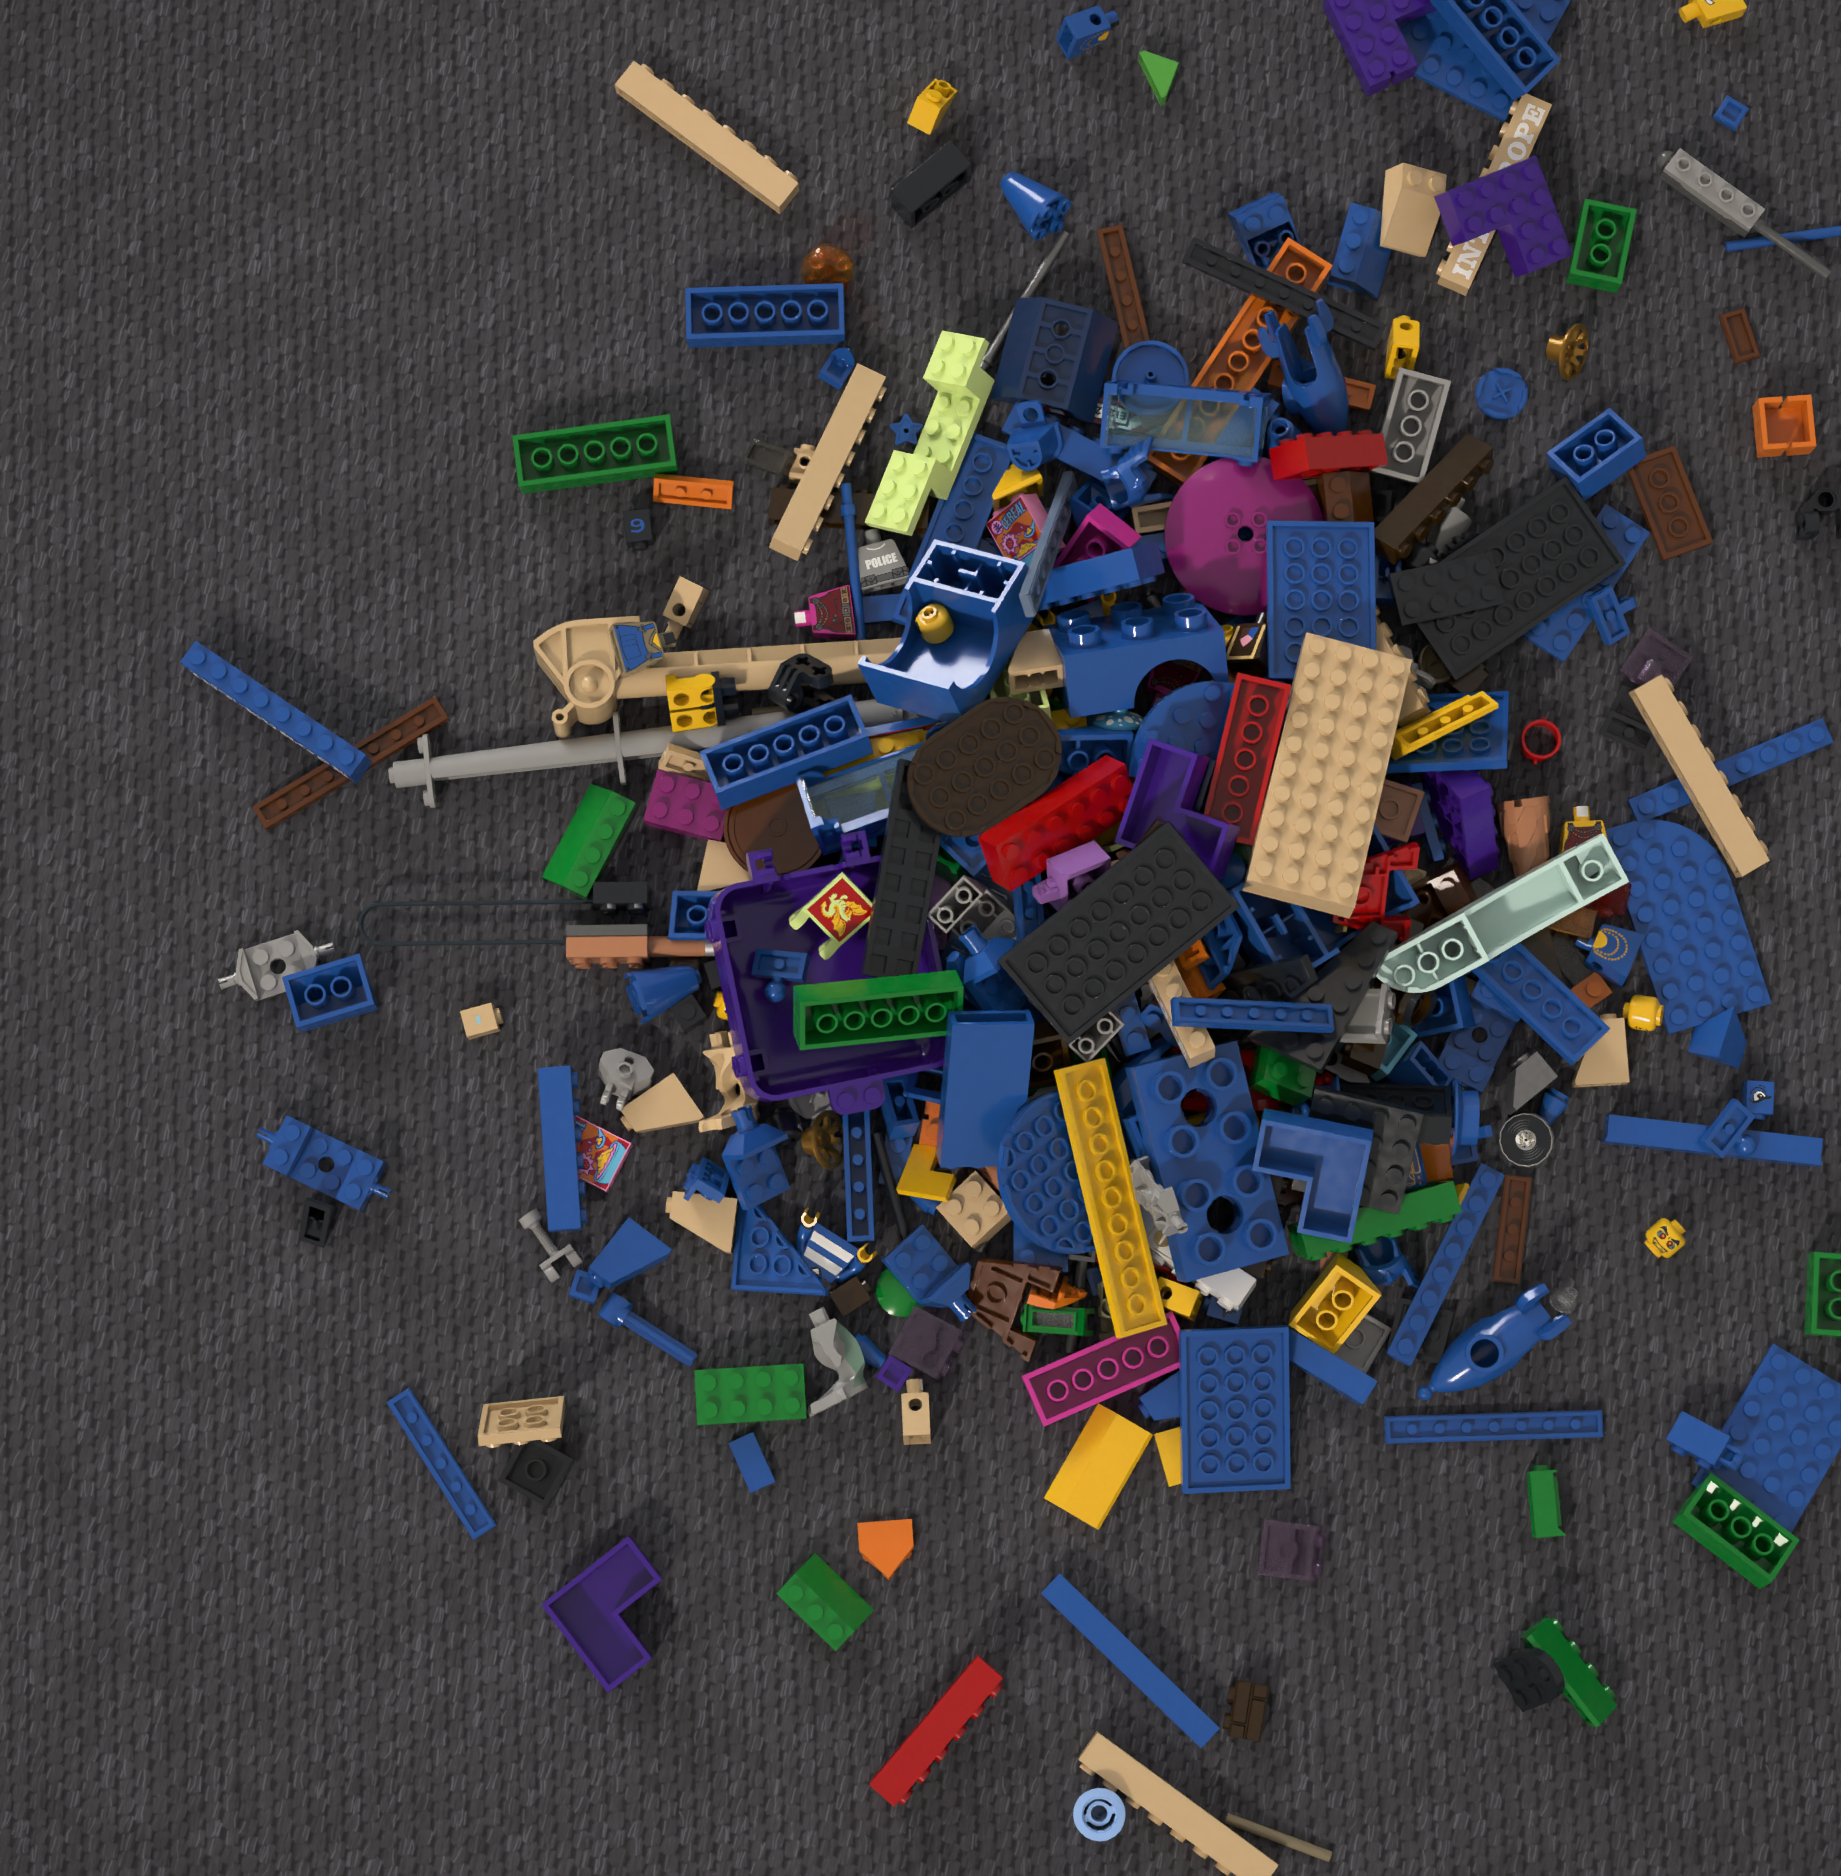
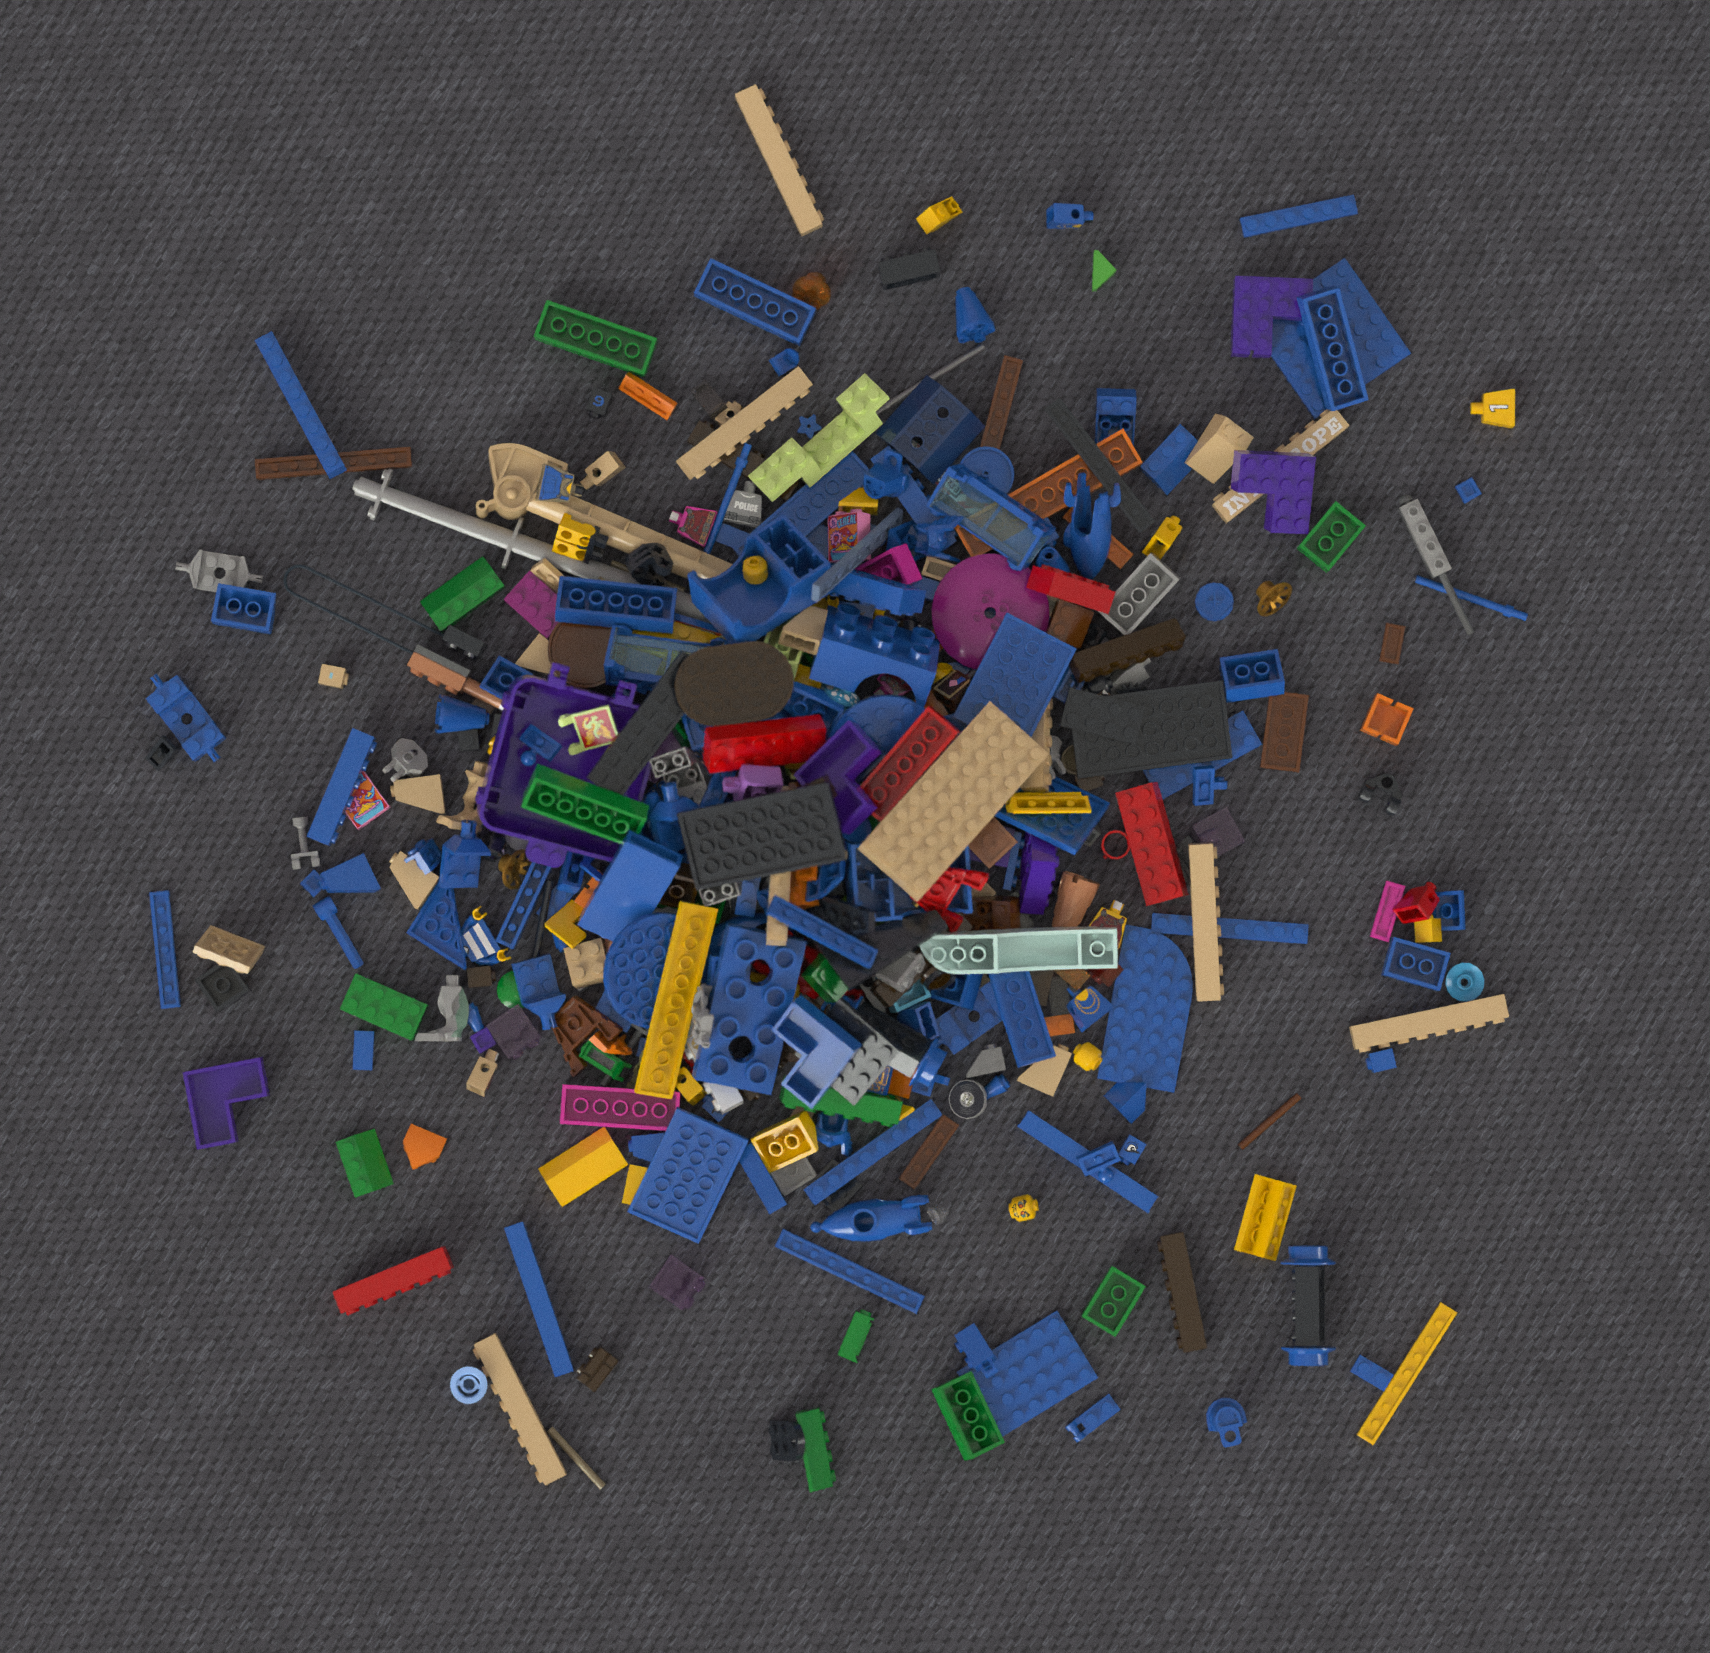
camera: 20 degrees right, 5 degrees up
(1584, 715) = (1151, 843): none -> red brick

